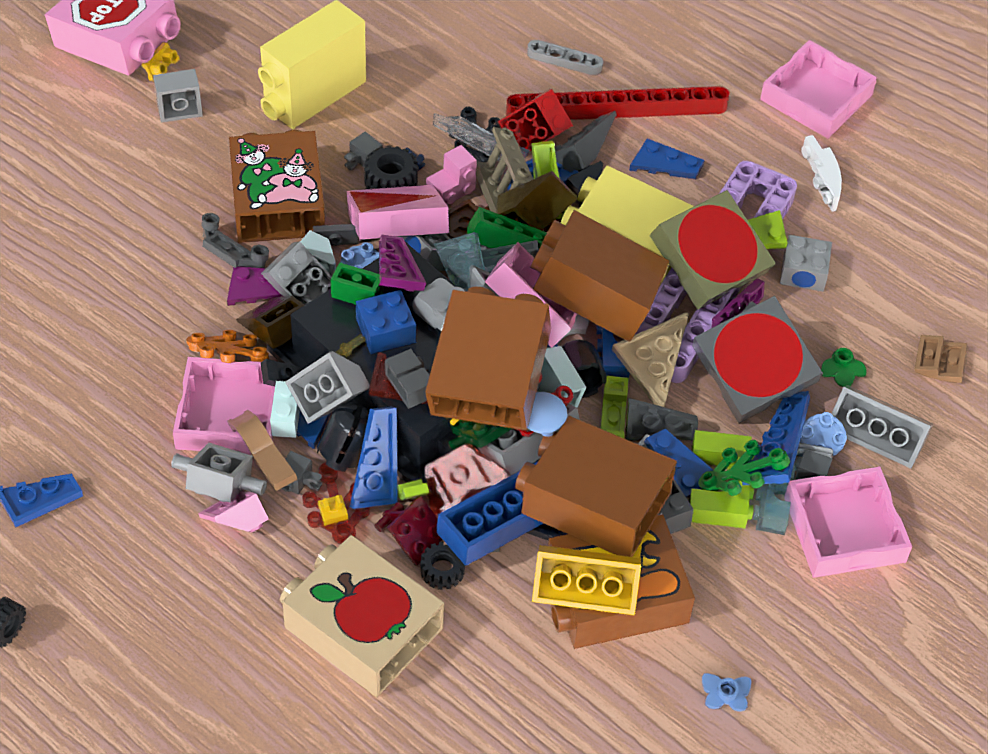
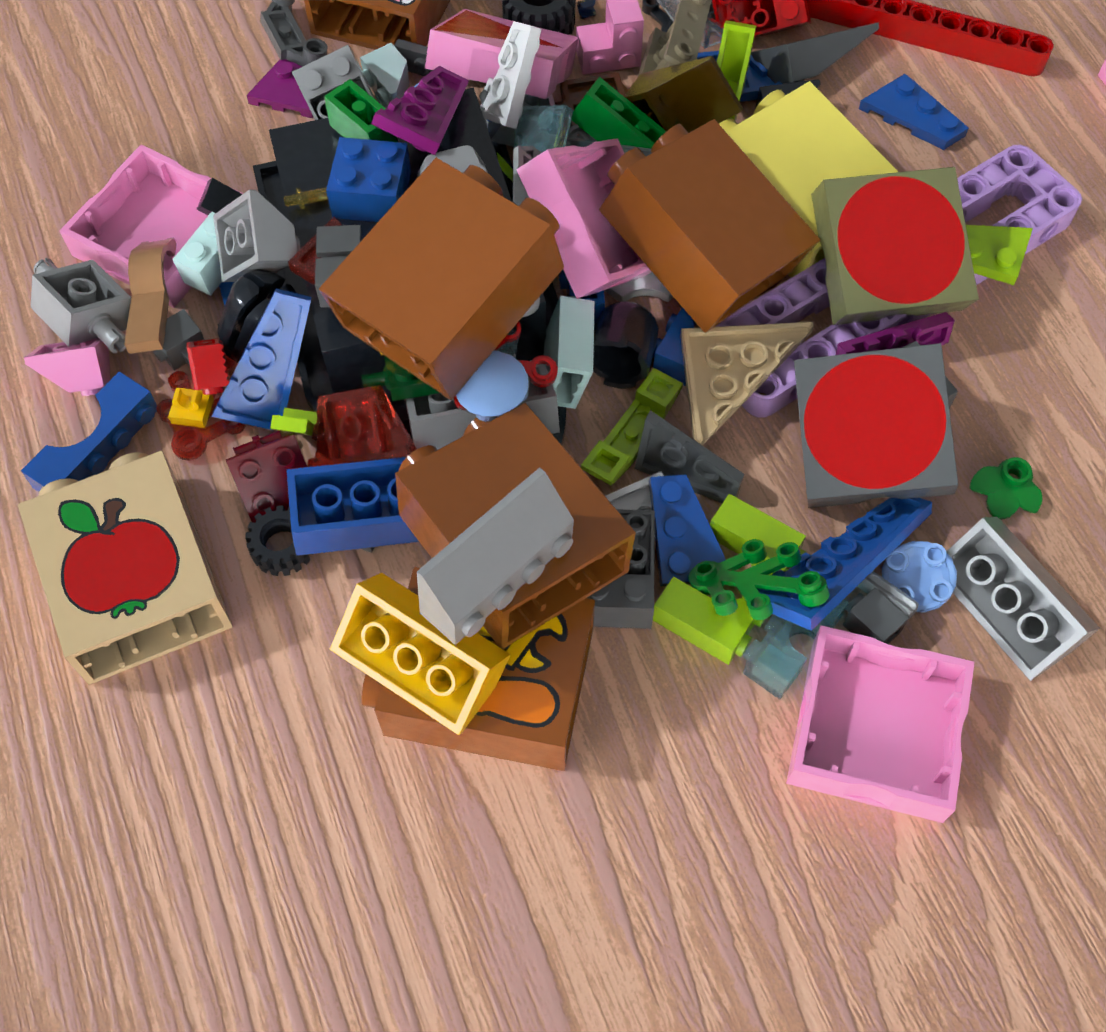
camera: 30 degrees right, 10 degrees up
(227, 346) = (197, 144): orange plant -> none
(272, 320) = (257, 141): dark brown slope -> none
(287, 529) = (124, 412): none -> blue arch
(338, 476) = (208, 365): none -> red brick
(427, 225) = (509, 85): none -> white wing
(620, 500) = (494, 558): none -> light grey slope
(726, 691) = (552, 904): medium blue animal -> none
(806, 263) = (1034, 316): light grey brick -> none

